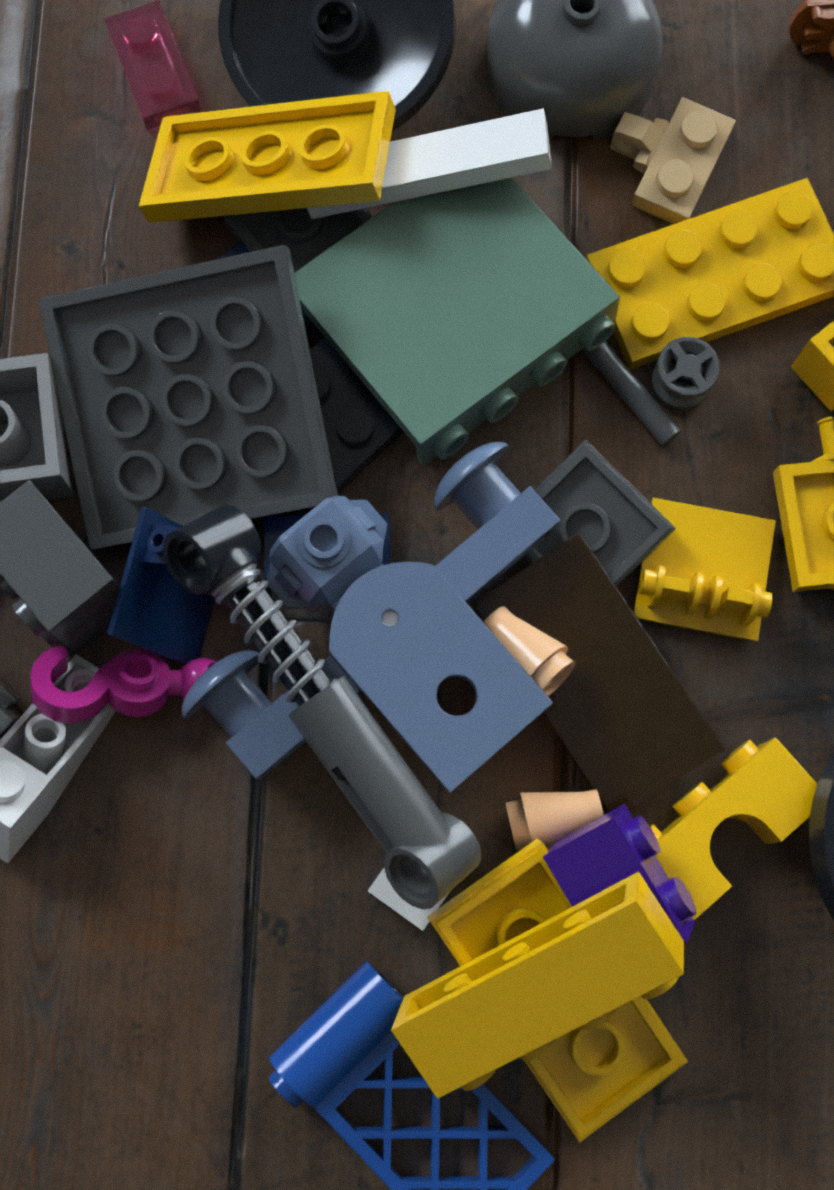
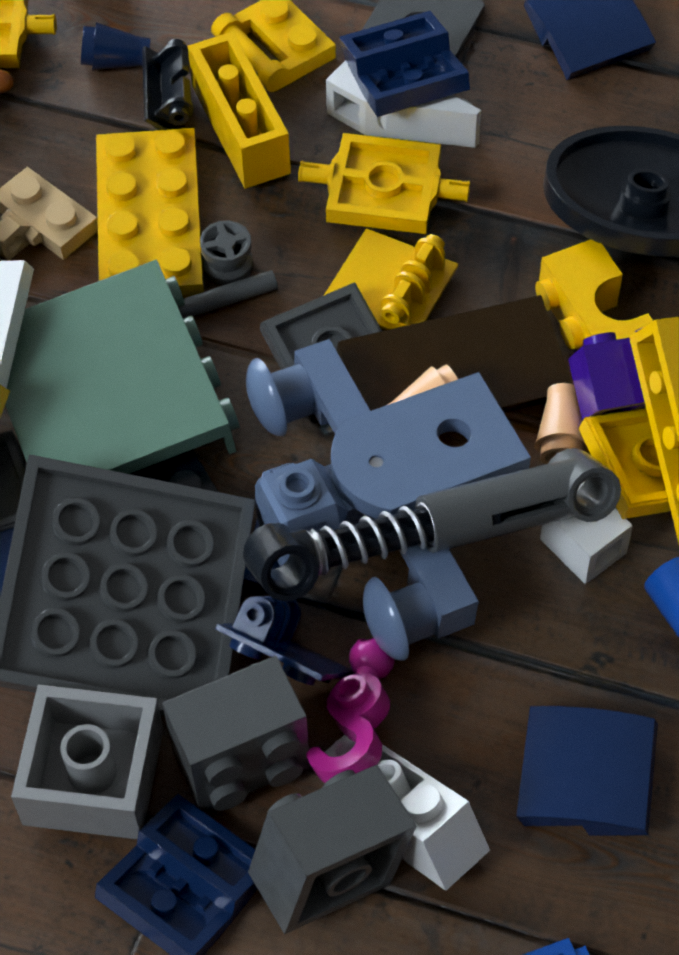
camera: 70 degrees left, 20 degrees down
(127, 947) = (588, 770): none -> dark blue slope

